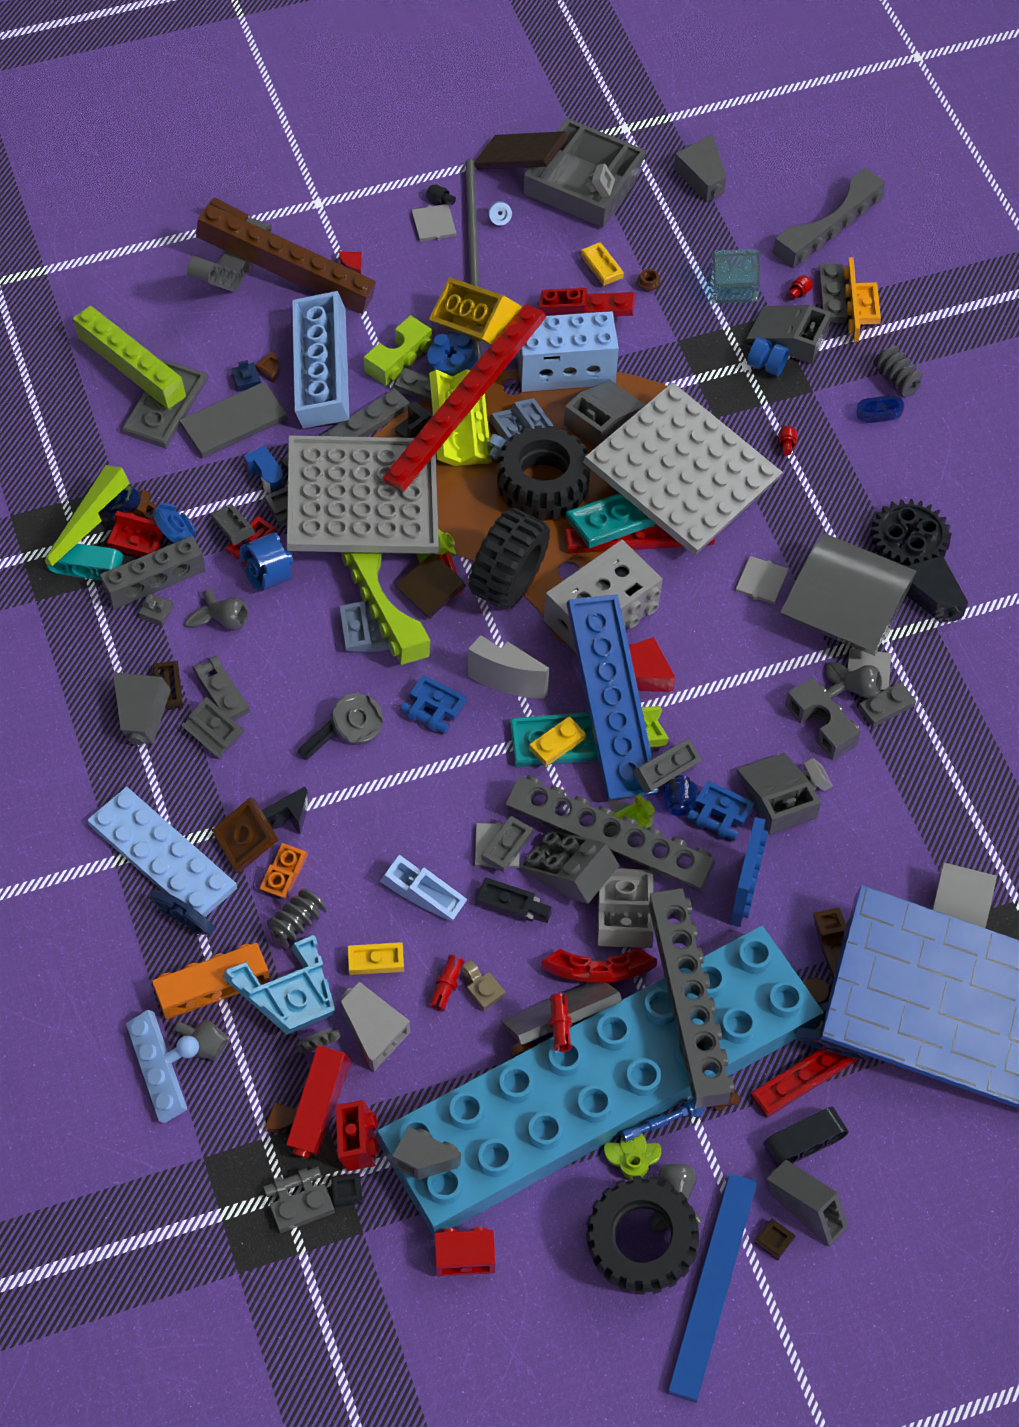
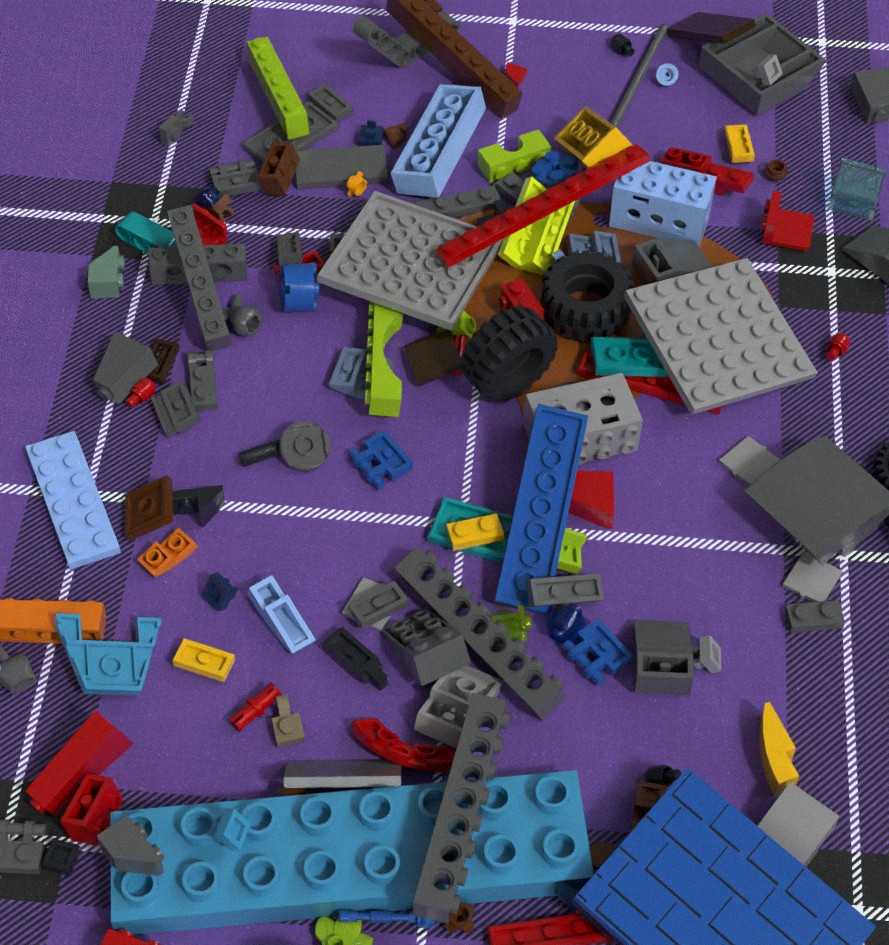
camera: 25 degrees right, 5 degrees down
(44, 438) = (172, 127): none -> dark grey plate
(66, 618) = (105, 274): none -> sand green slope
(105, 488) = (164, 197): lime wedge -> none
(144, 469) = (235, 178): none -> dark grey plate
(156, 610) = (181, 296): dark grey tile -> none
(169, 723) = (141, 392): none -> red cylinder
(170, 588) = (199, 278): none -> dark grey brick
(172, 524) = (236, 230): blue tile -> none
(178, 444) = (278, 168): none -> reddish brown brick
(181, 911) = (56, 553): dark blue tile -> none
(187, 354) = (330, 102): none -> dark grey plate
(261, 434) = (356, 184): none -> light orange plate
(266, 467) = (342, 208): blue leg -> none
(280, 1118) = (35, 766): reddish brown tile -> none
(294, 915) = (151, 595): dark grey piece -> none
(321, 1038) = (109, 709): dark grey gear -> none
(354, 889) = (219, 591): none -> dark blue tile
(373, 1024) = (167, 718): light grey slope -> none
(434, 222) = (605, 66): light grey piece -> none
(483, 502) = (519, 294): none -> red brick
(503, 1101) = (231, 829): none -> dark azure tile
(507, 669) = (460, 451): light grey slope -> none
(560, 1022) = (327, 780): red pin -> none
(685, 335) = (786, 227): none -> red bracket
(749, 872) = (586, 714): blue plate -> none
(768, 356) = (854, 267): blue wheel -> none
(812, 701) = (739, 585): dark grey arch -> none
(831, 899) = (662, 775): none -> black cylinder
(863, 681) = (798, 585): dark grey piece -> none
(914, 839) = (776, 751): none -> yellow slope

